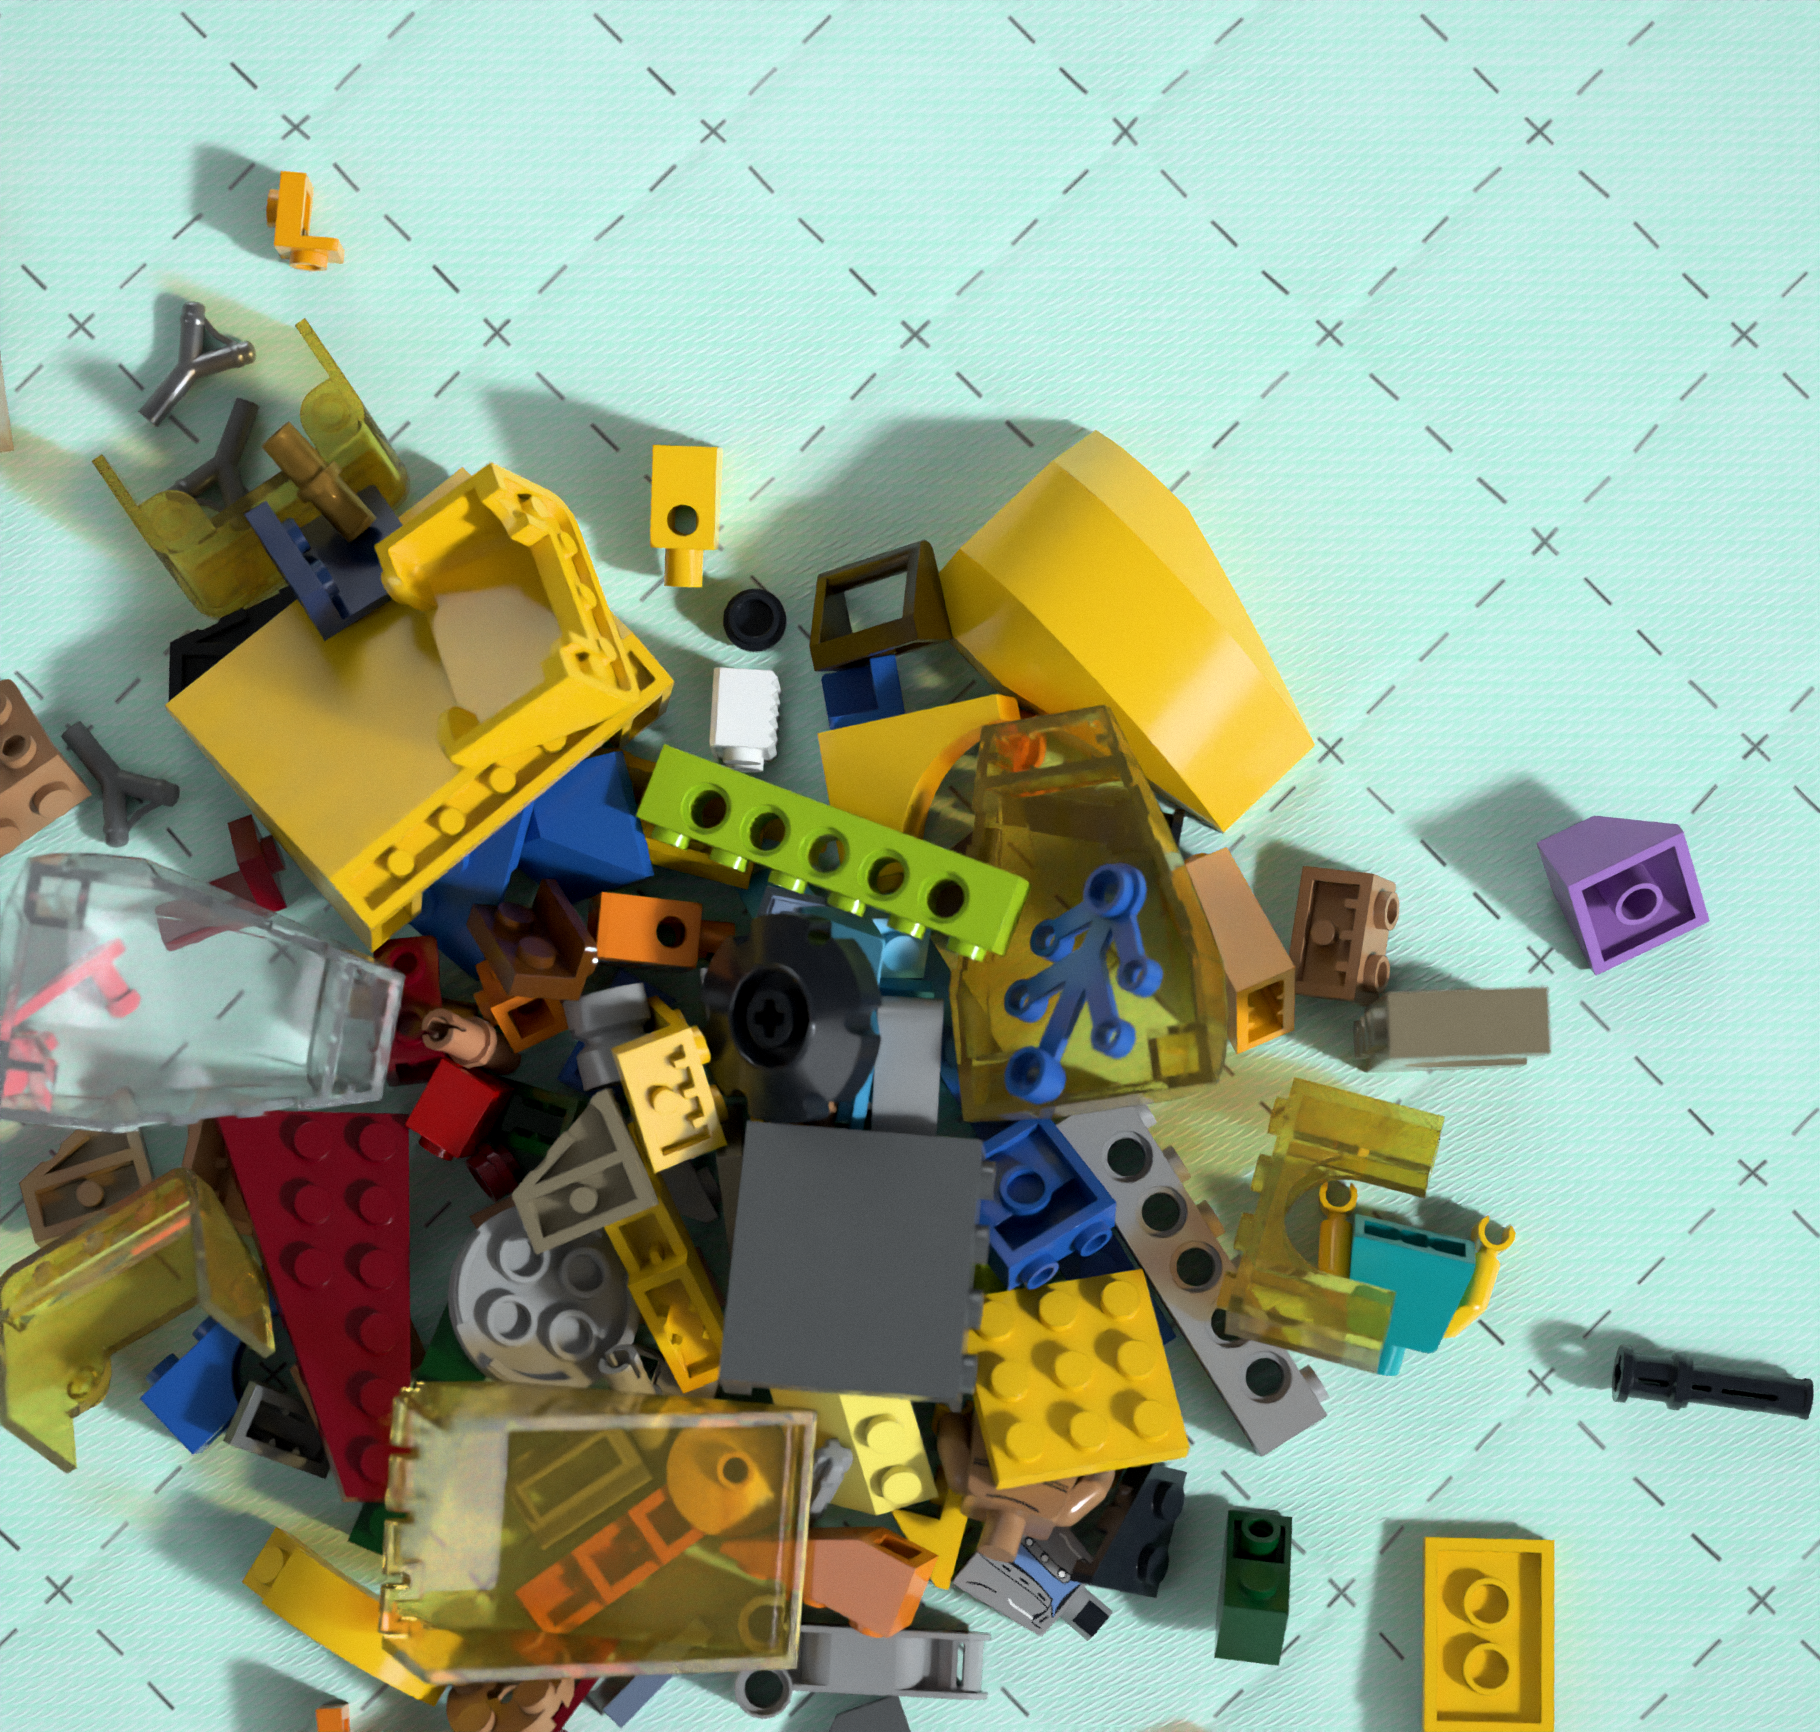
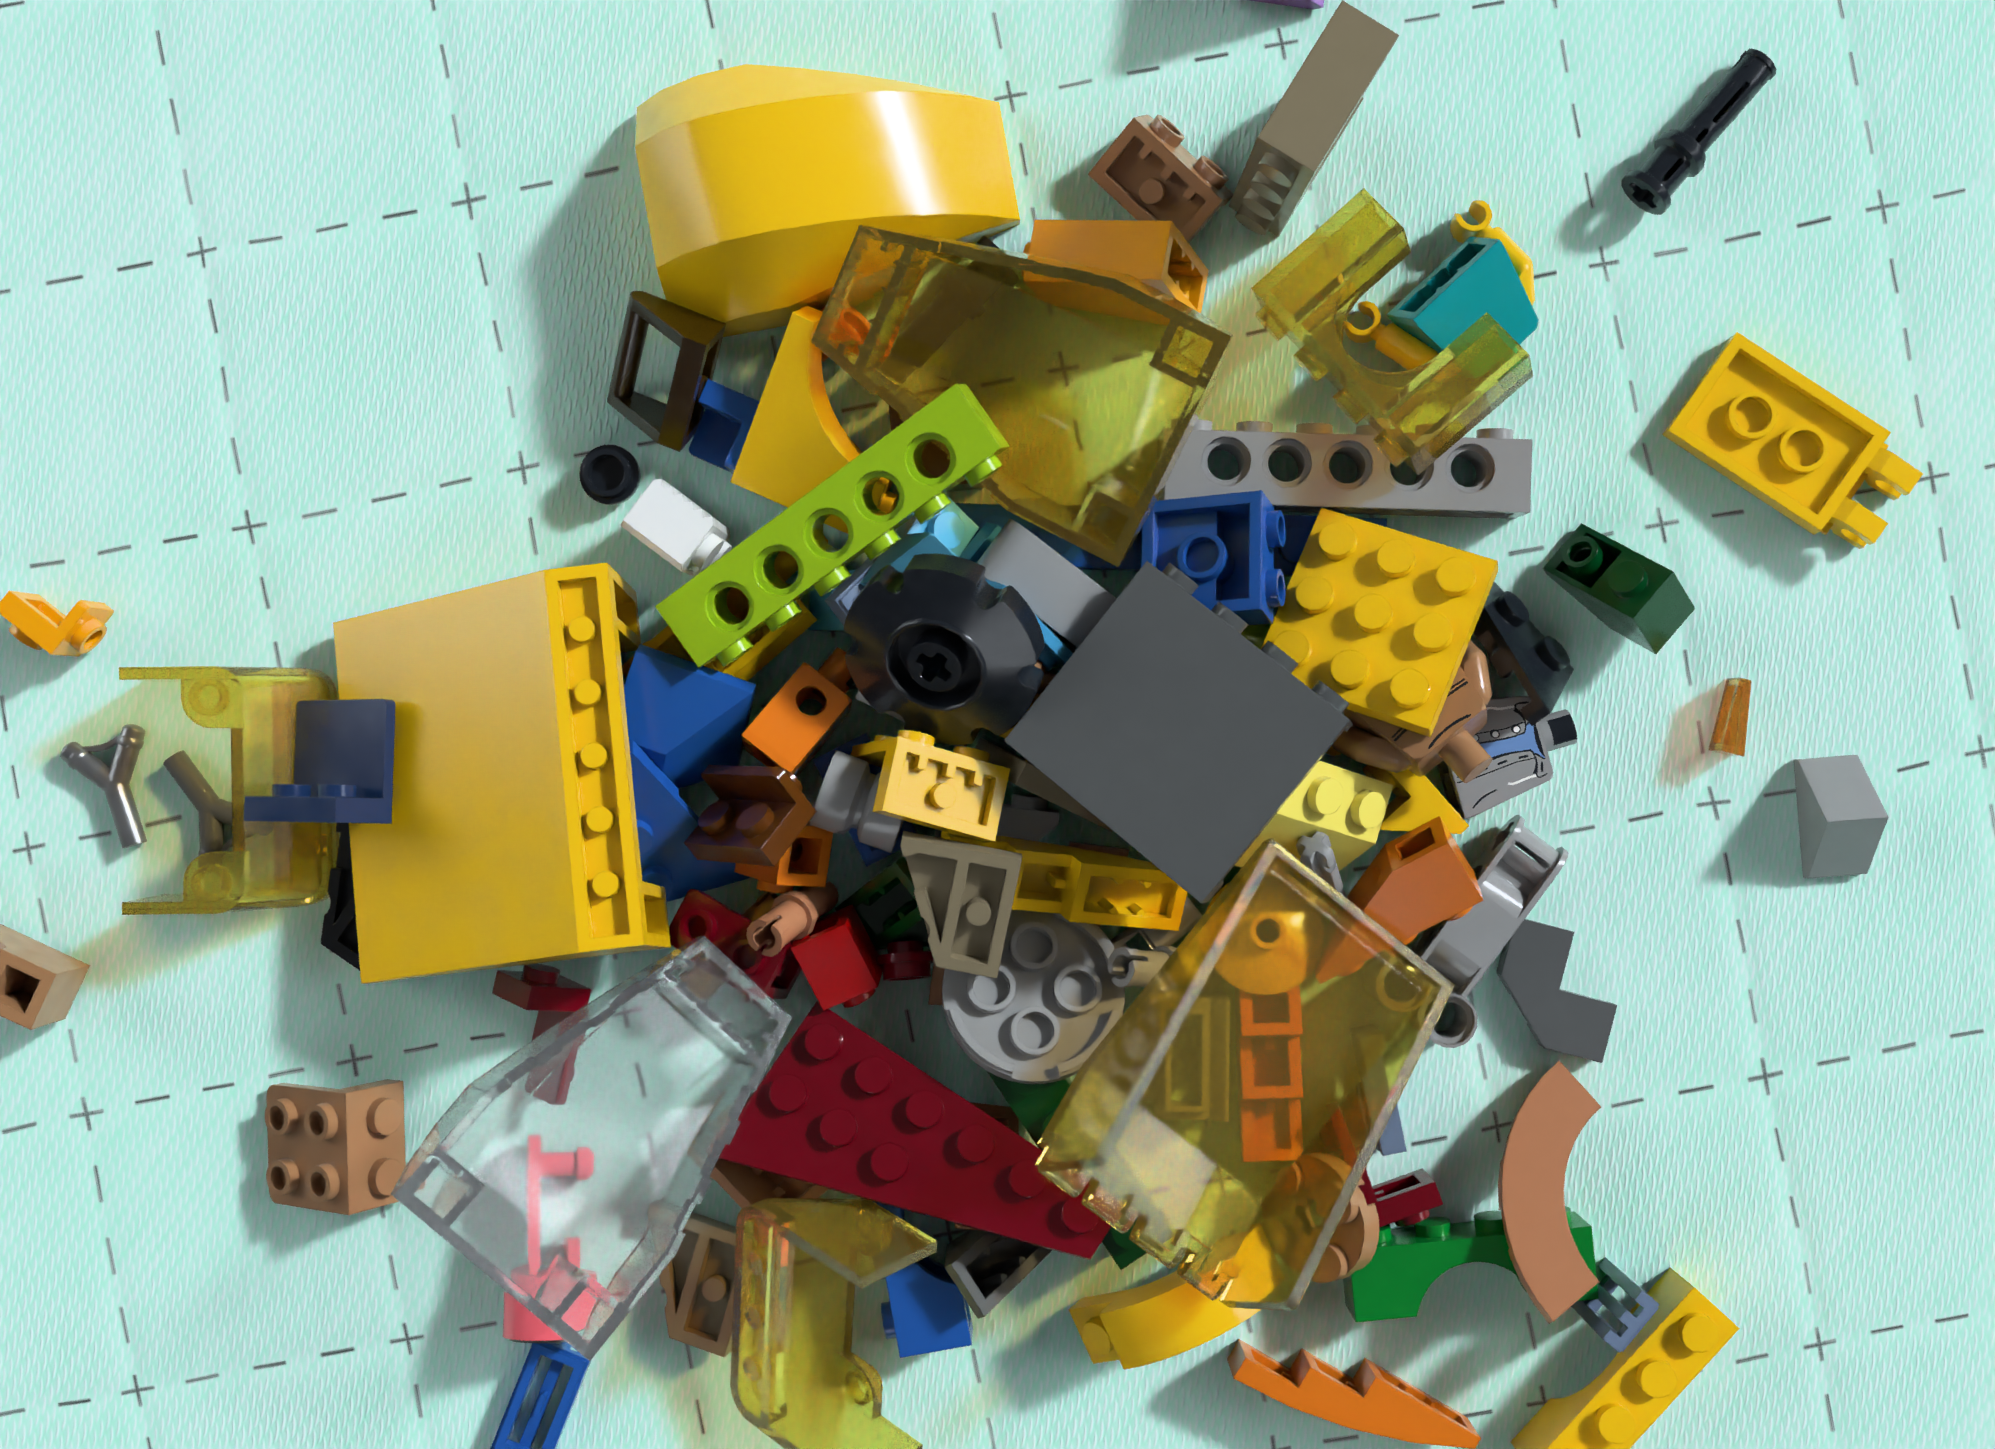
camera: 60 degrees left, 5 degrees up
(117, 784) = (409, 1056): dark grey piece -> none
(319, 482) = (257, 743): pearl gold pin -> none
(510, 616) = (462, 659): yellow windscreen -> none
(685, 478) = (459, 451): yellow torso -> none
(1109, 911) = (1069, 390): blue plant -> none

